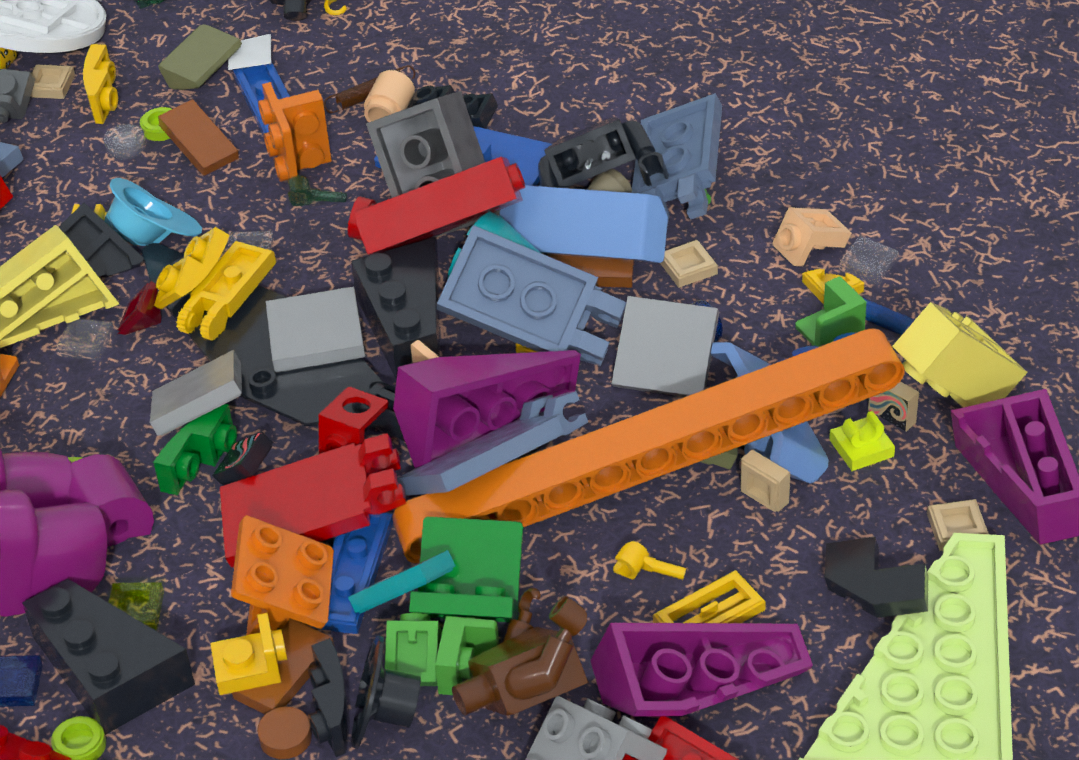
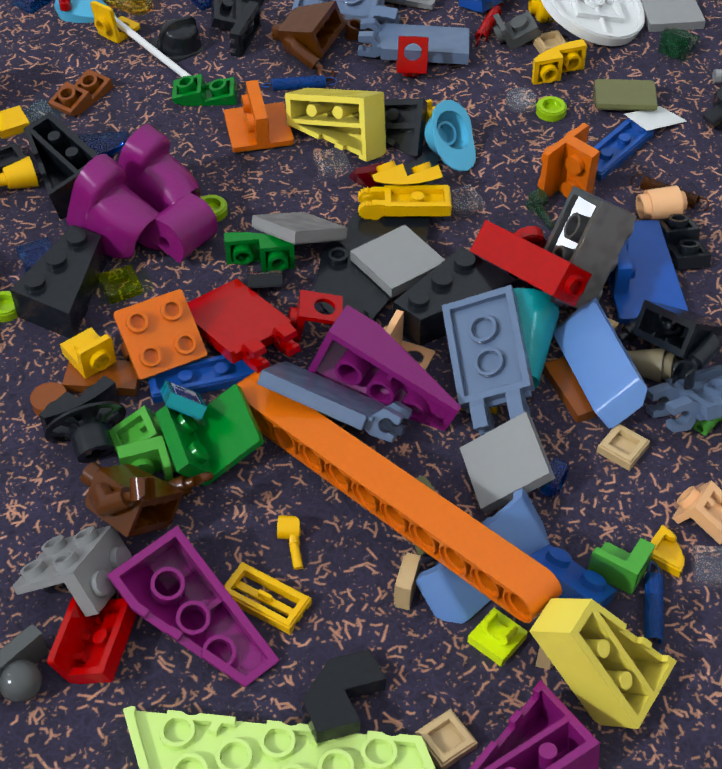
camera: 60 degrees right, 5 degrees up
(198, 137) = (546, 127): dark orange tile -> none

